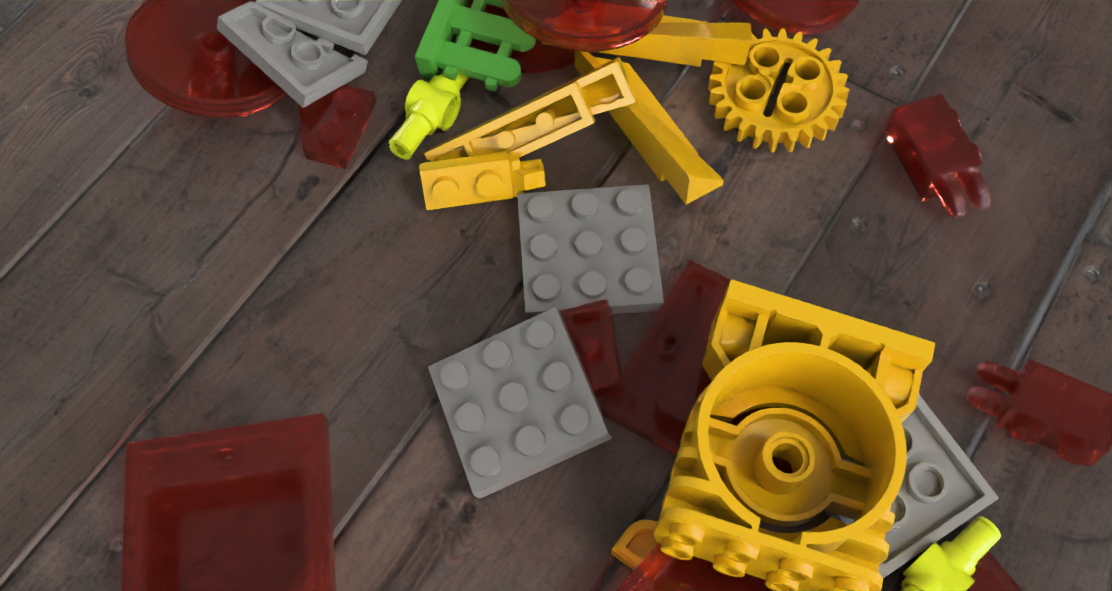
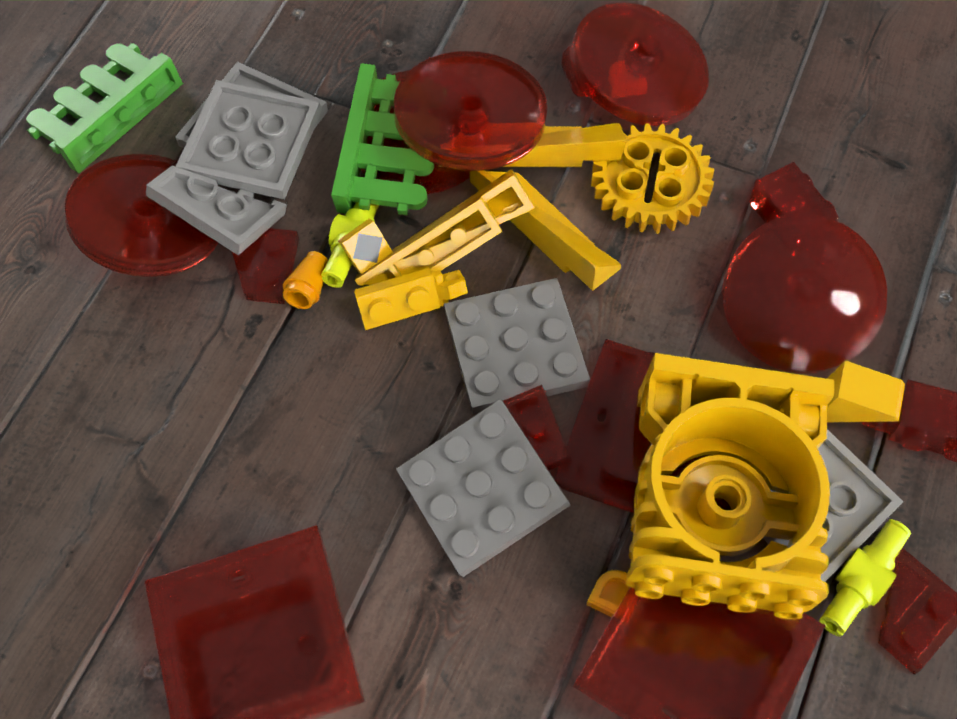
camera: 10 degrees left, 0 degrees up
(370, 149) = (305, 282): none -> light orange cone
(442, 118) = (365, 246): none -> yellow tile
(927, 243) = (804, 293): none -> clear red dish
(971, 368) = (864, 395): none -> yellow slope

